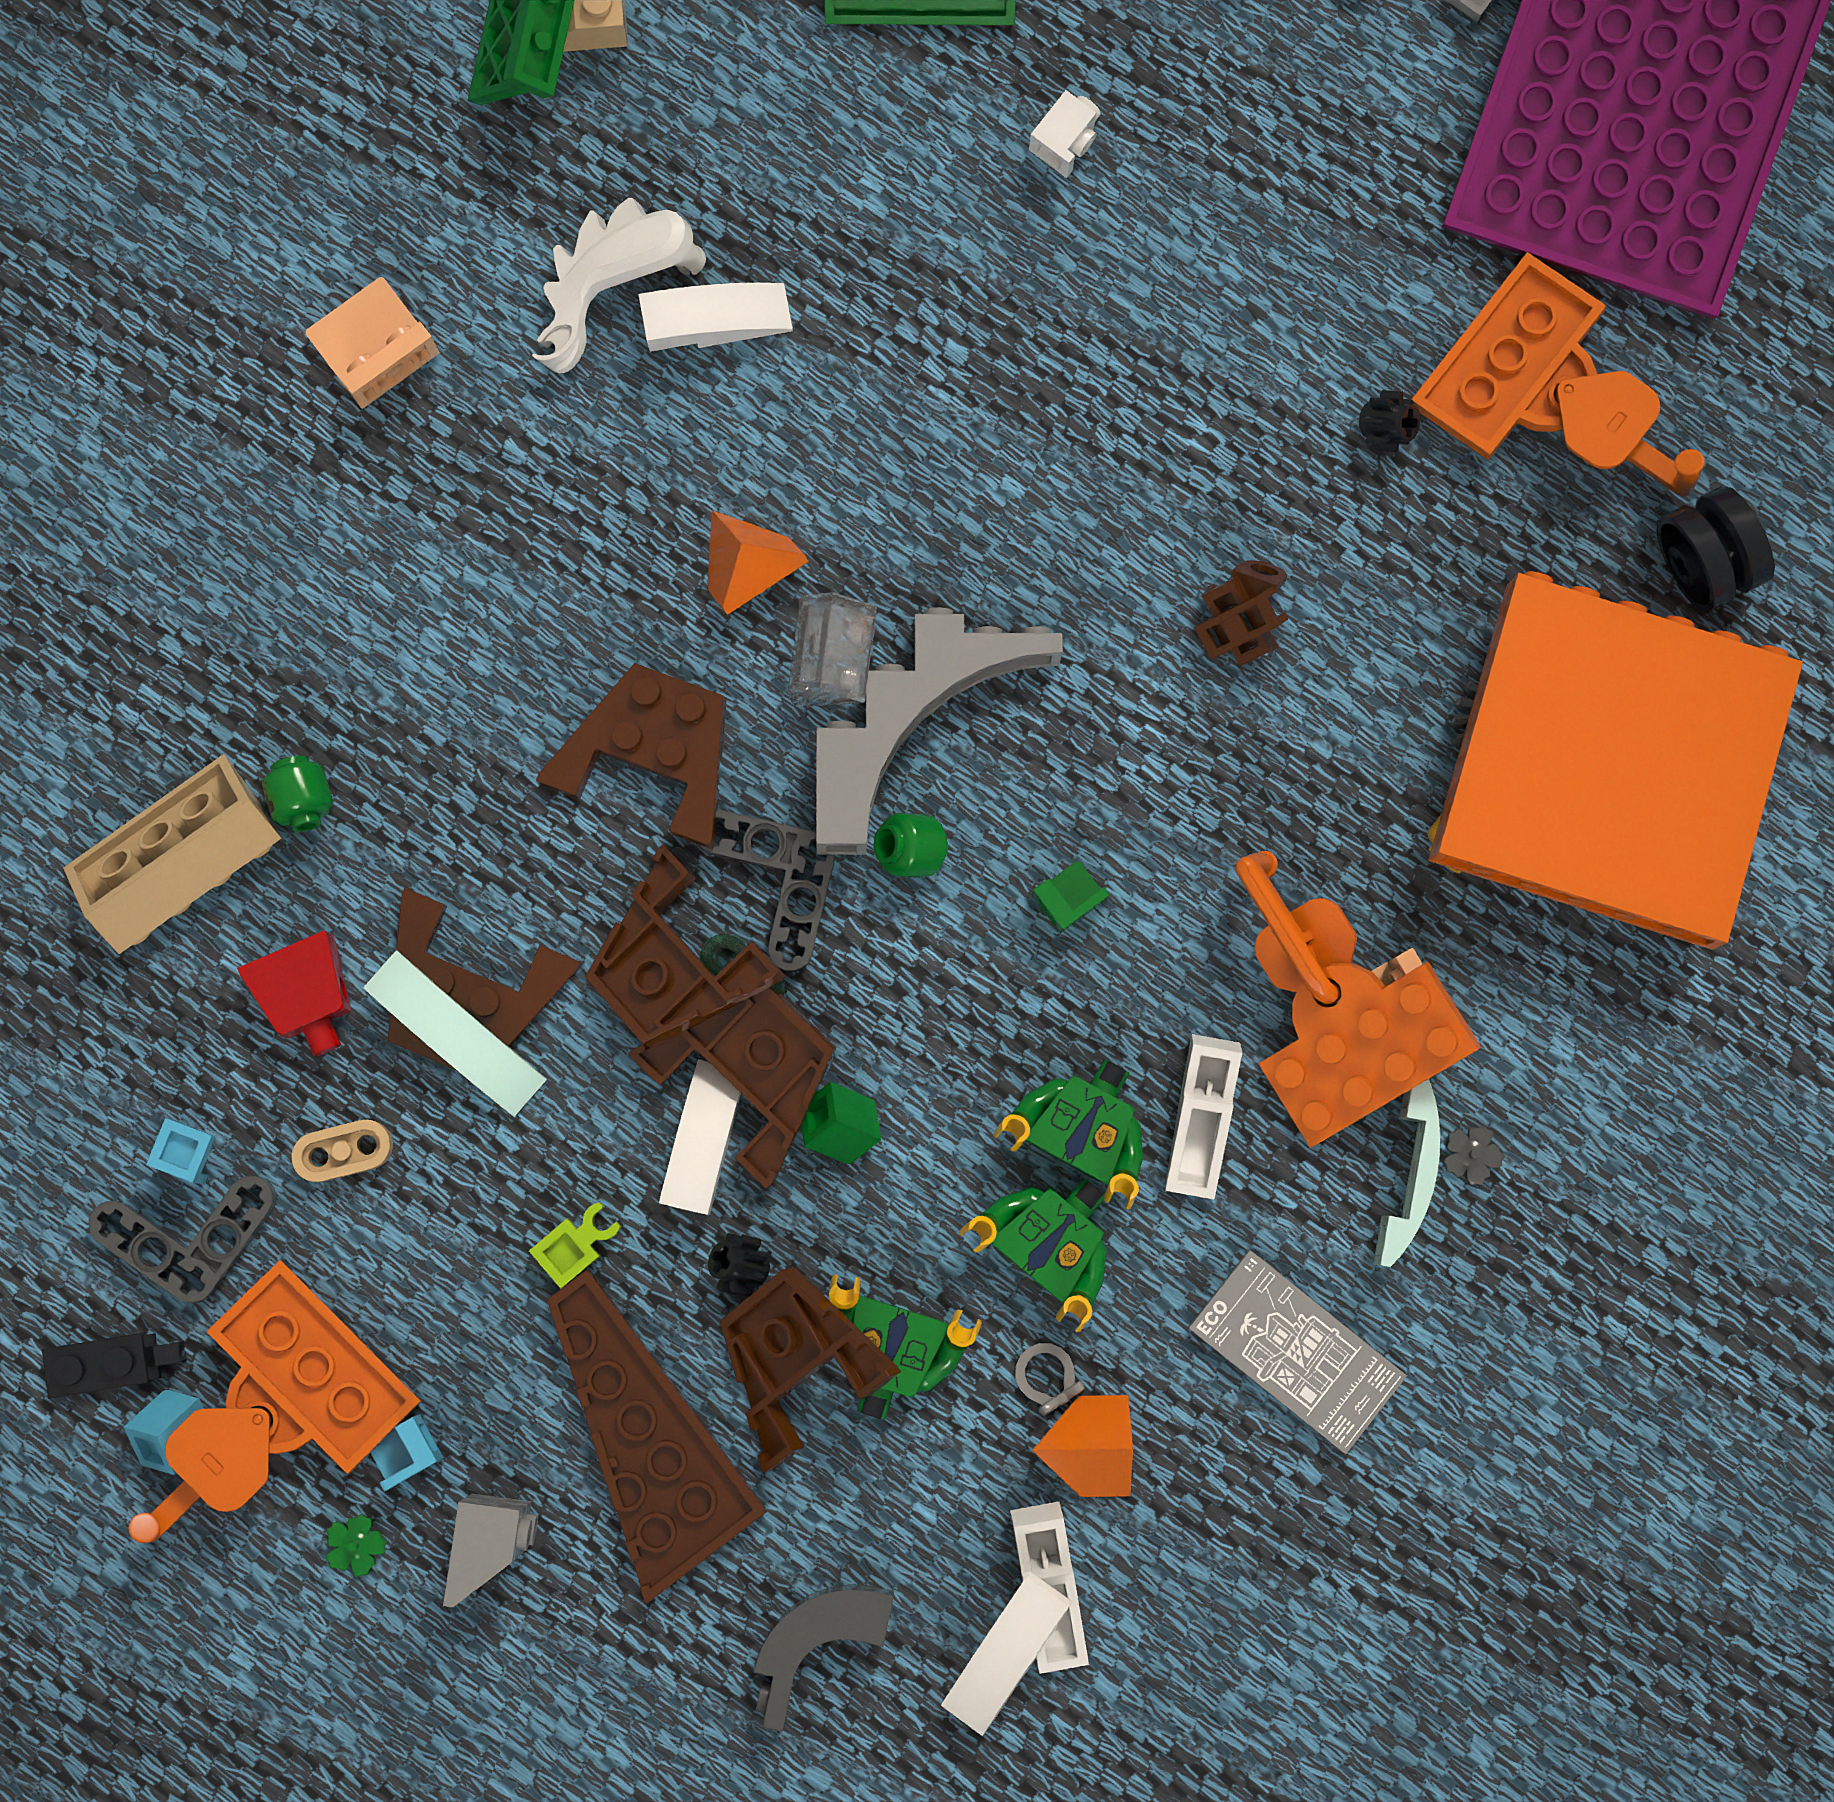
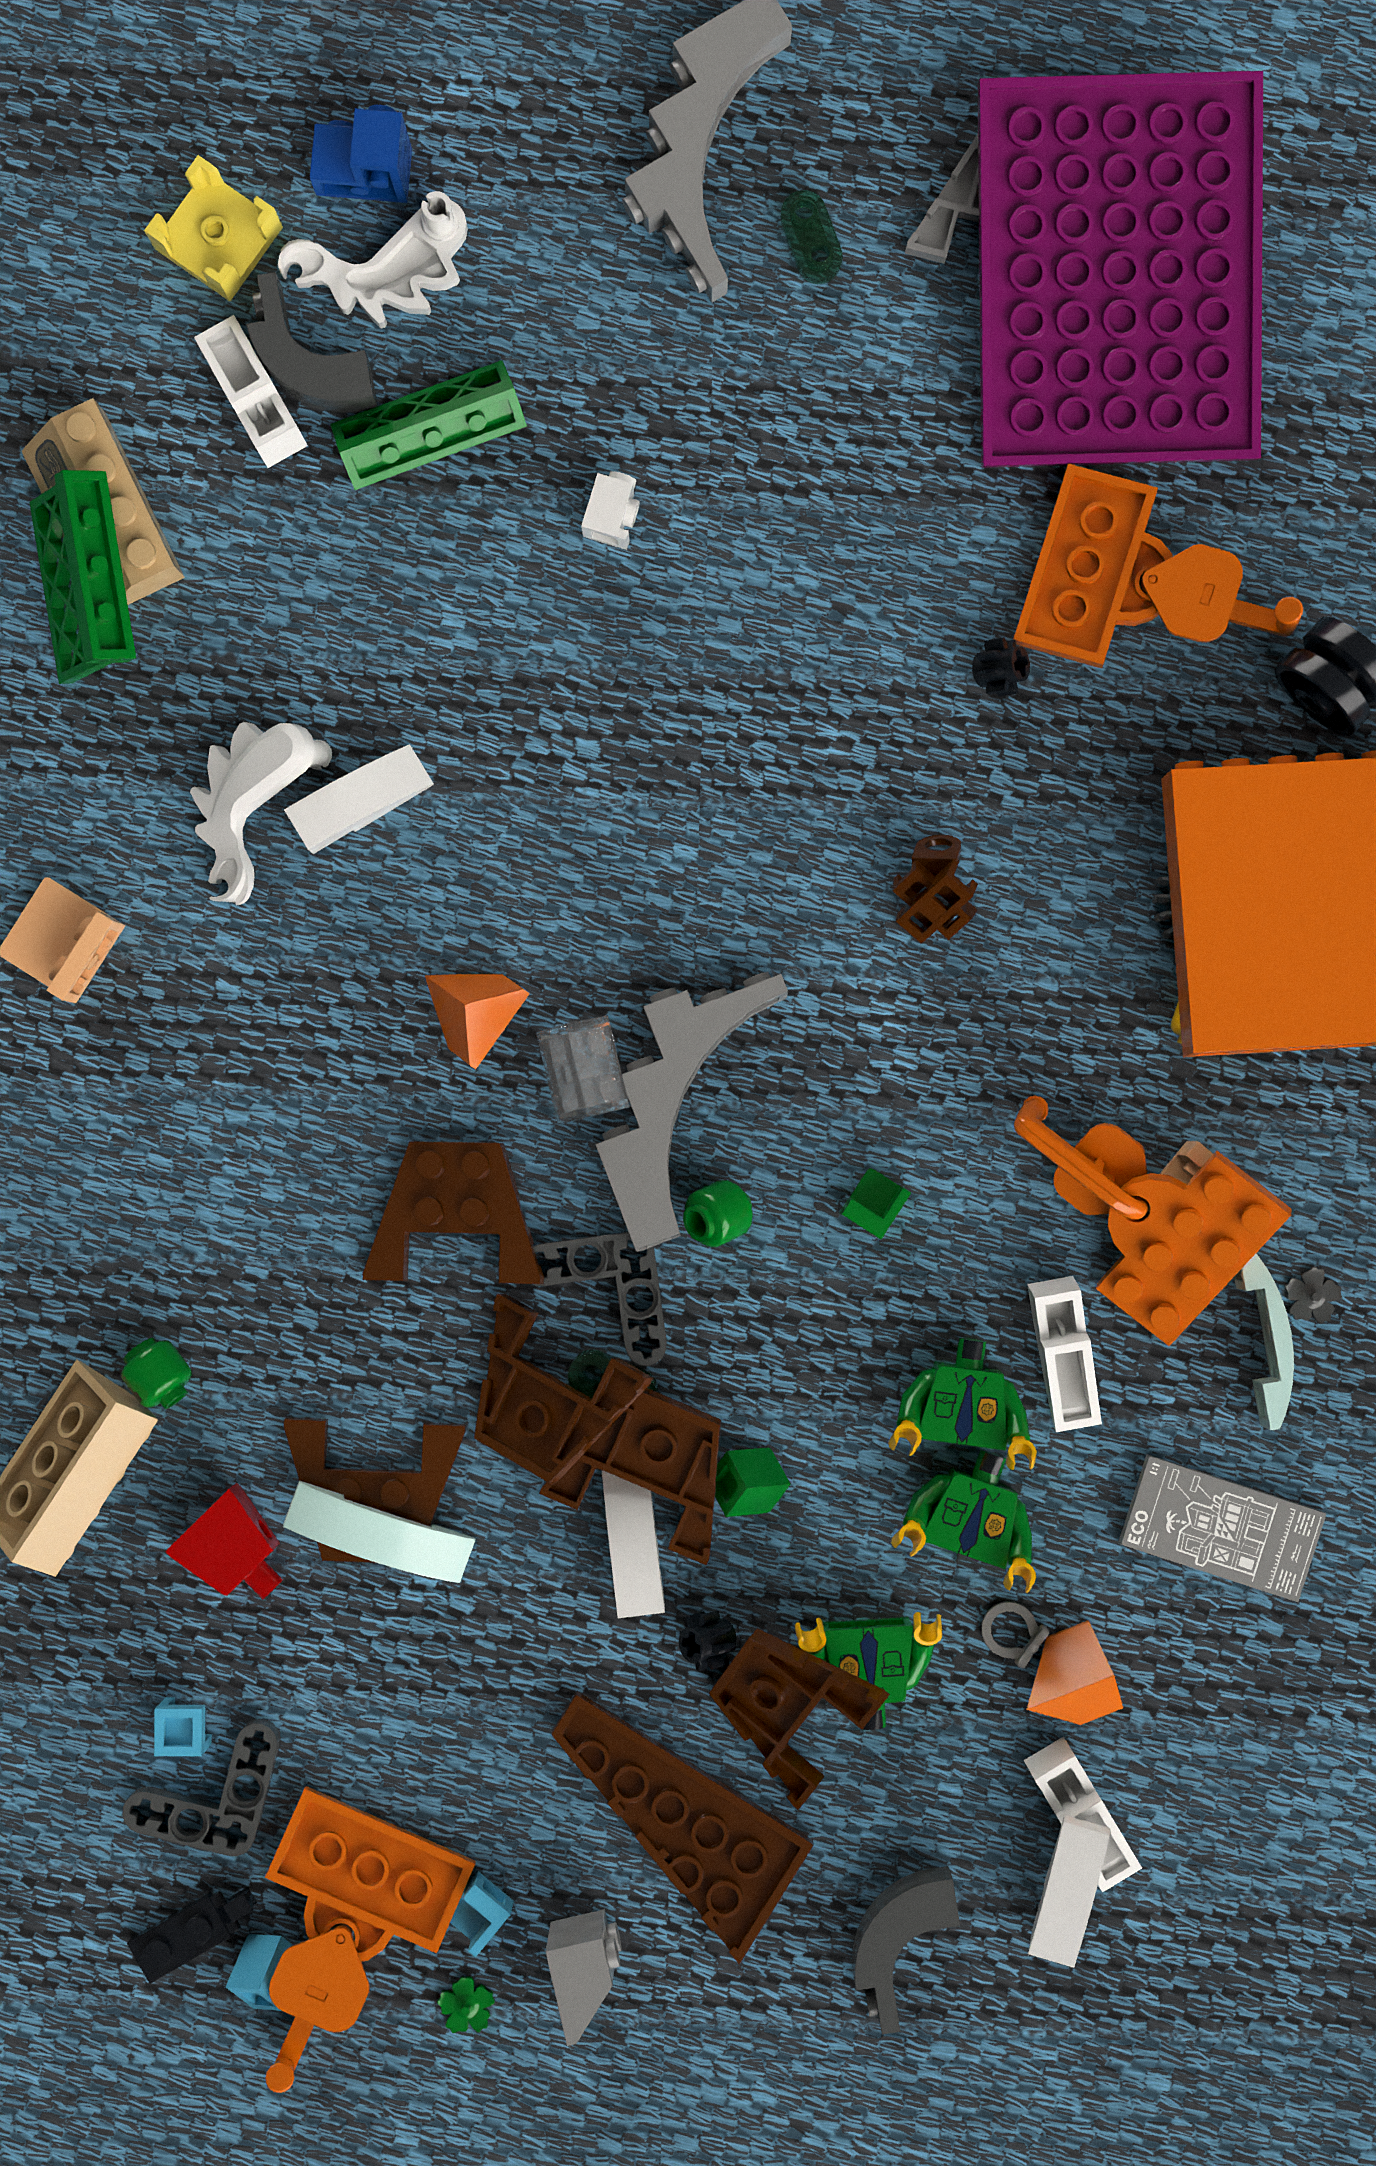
camera: 15 degrees left, 5 degrees up
(343, 1150) = (321, 1670): tan plate -> none
(570, 1249) = (553, 1680): lime plate -> none

